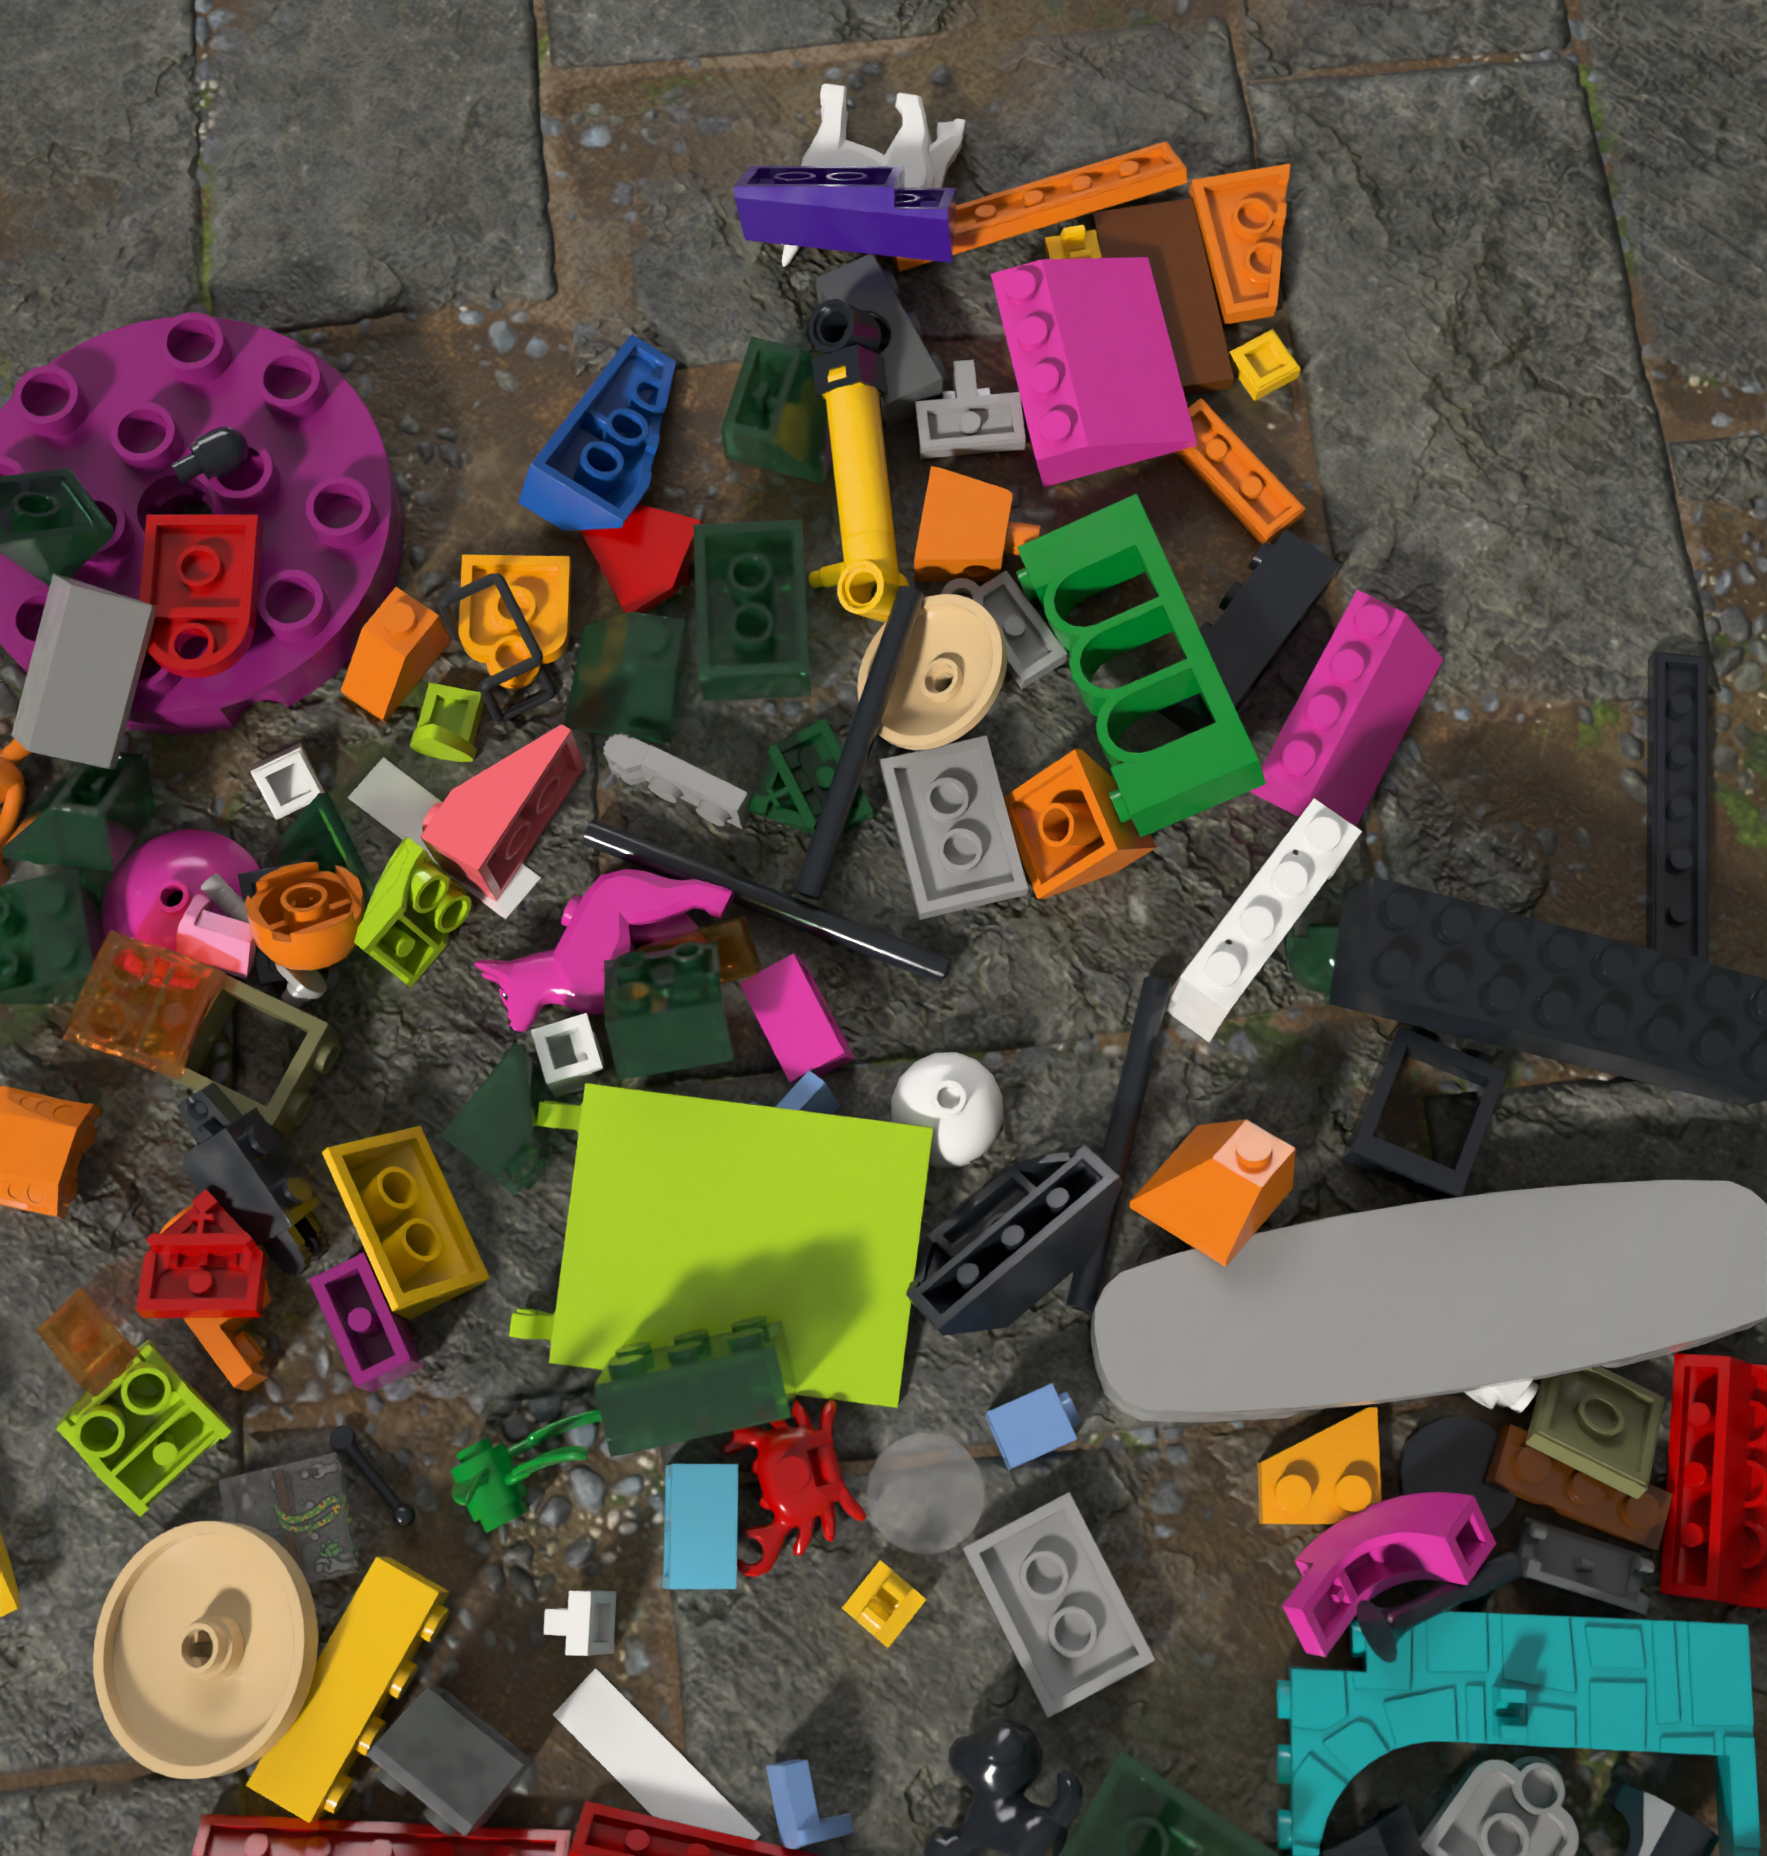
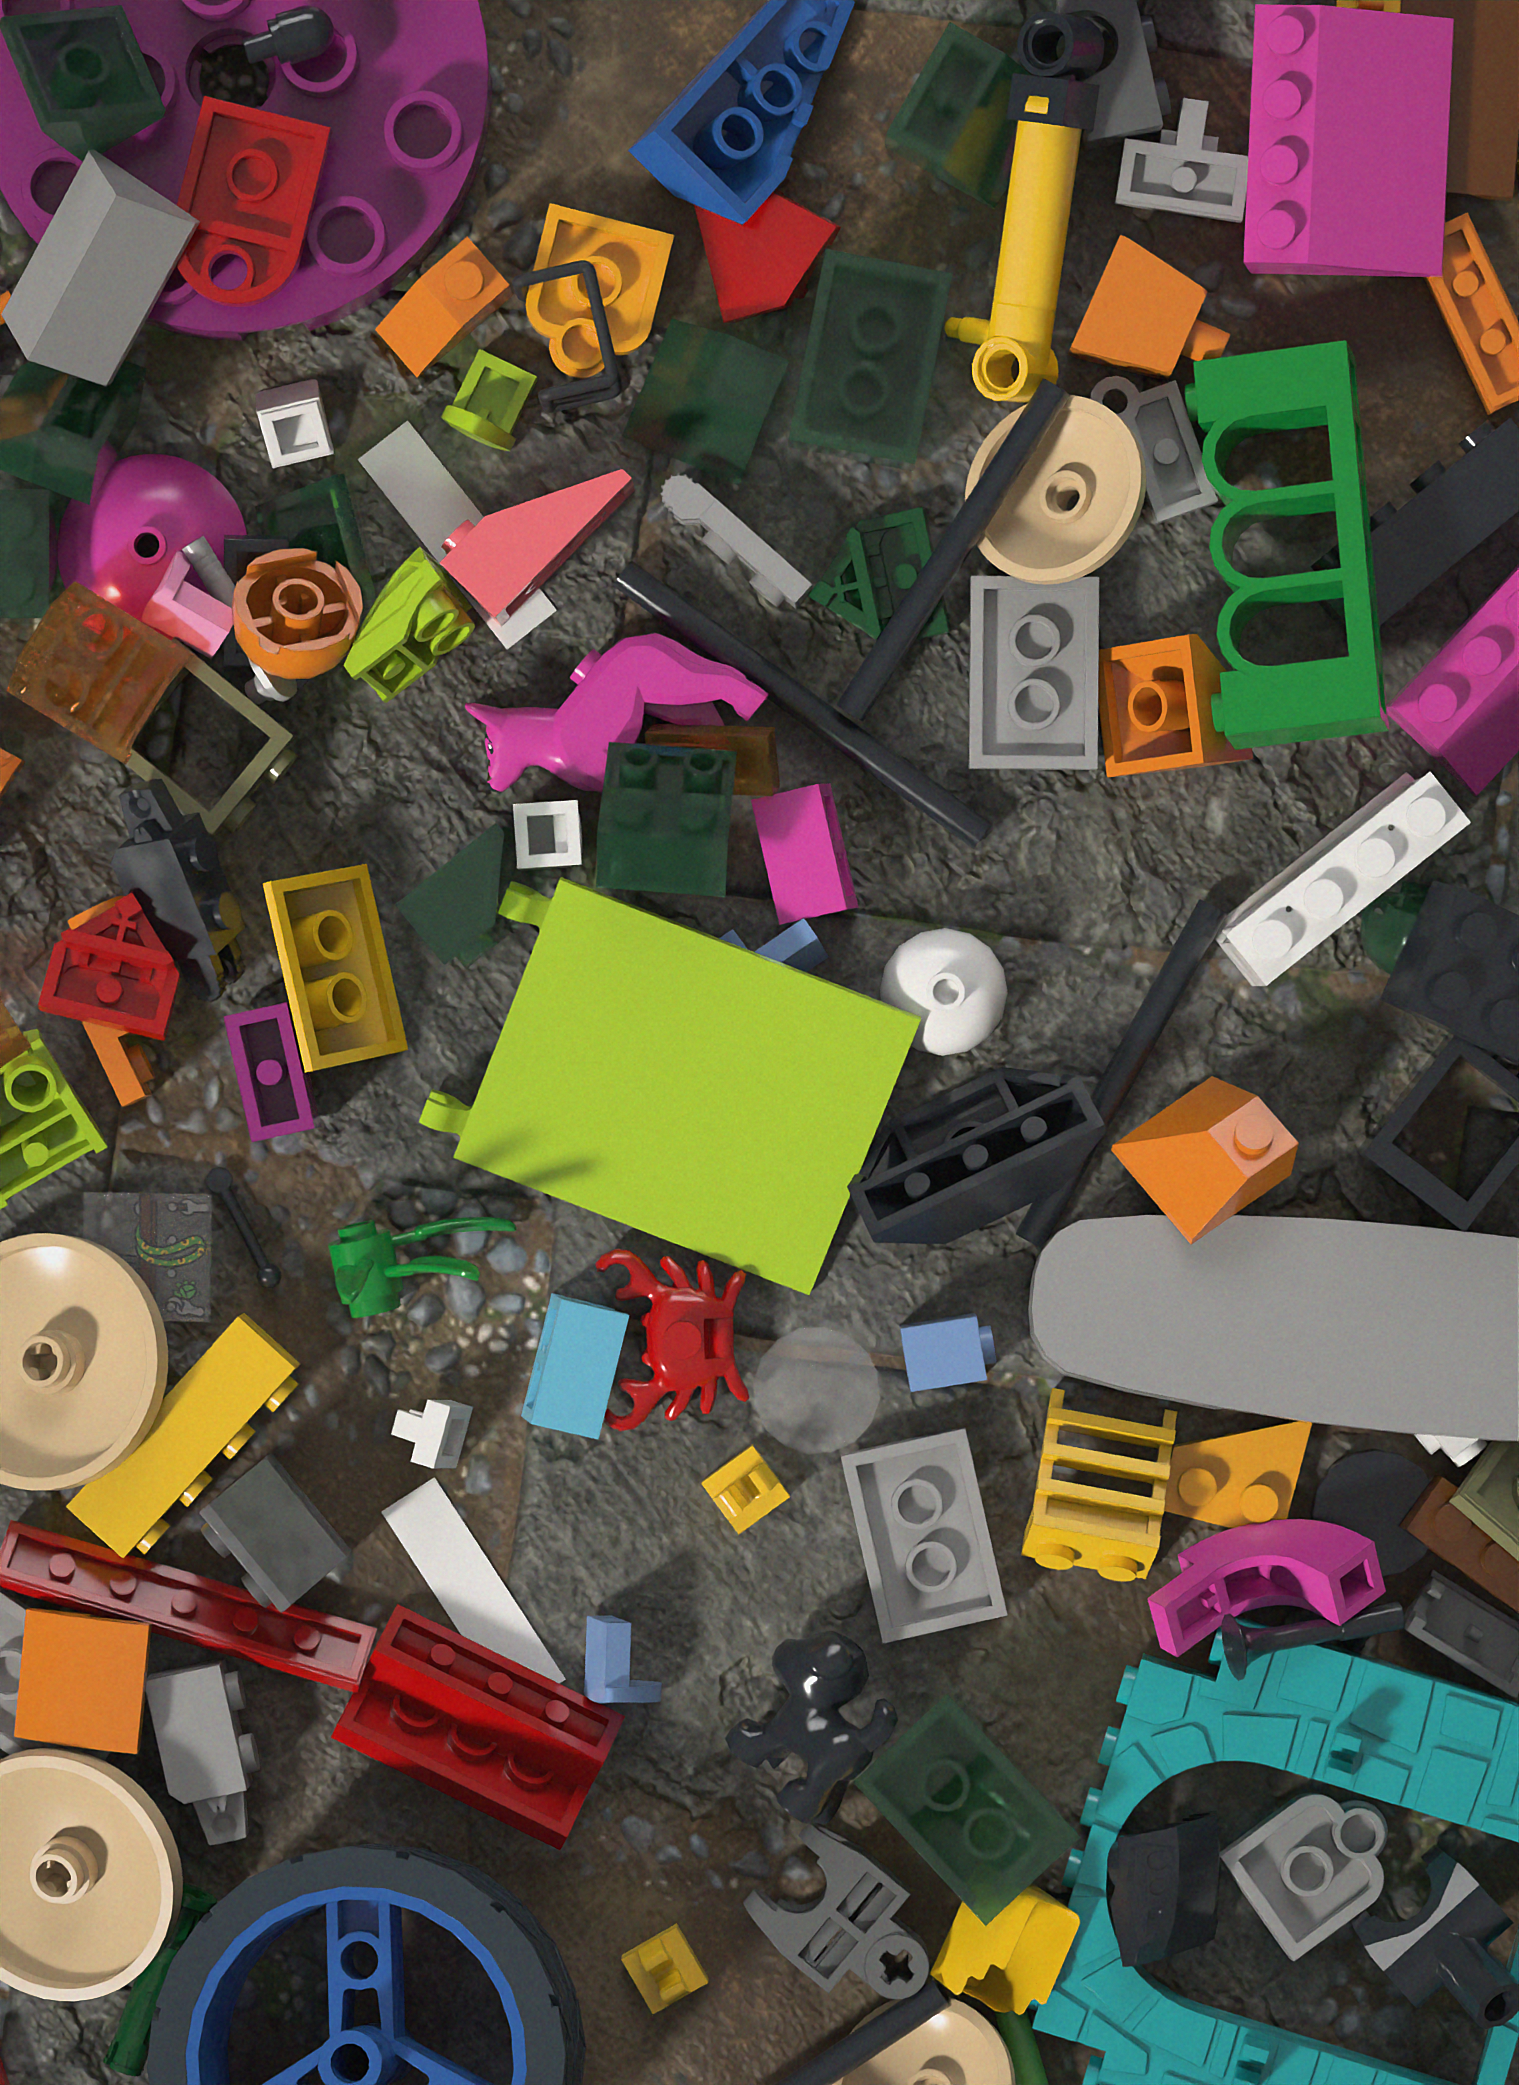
camera: 15 degrees right, 15 degrees up
(696, 1386) = (606, 1228): clear green brick -> none
(1214, 1551) = (1094, 1524): none -> yellow plate

